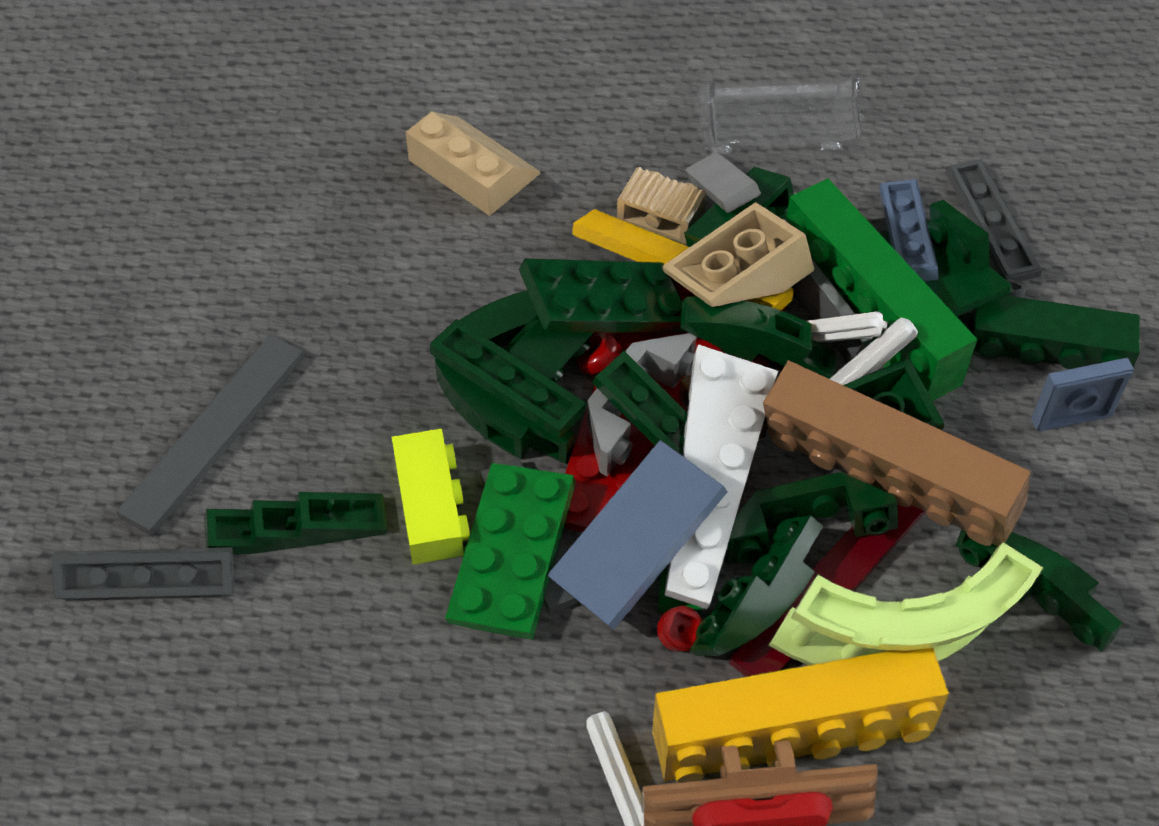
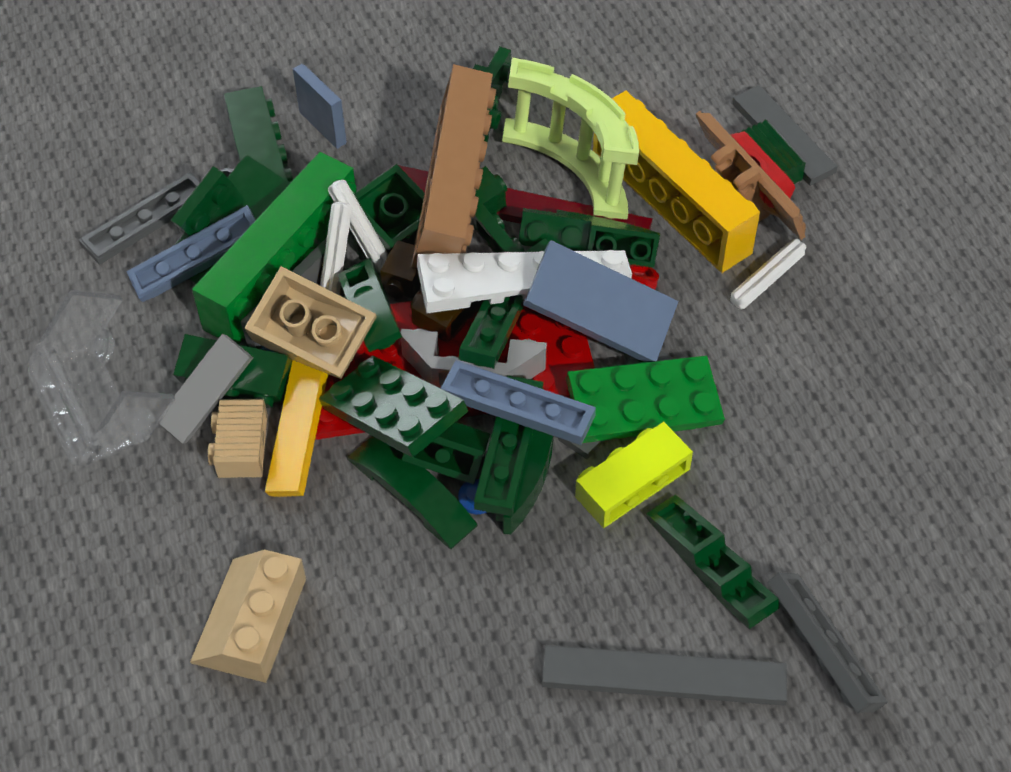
camera: 115 degrees left, 0 degrees up
(536, 385) = (520, 402): none -> sand blue plate

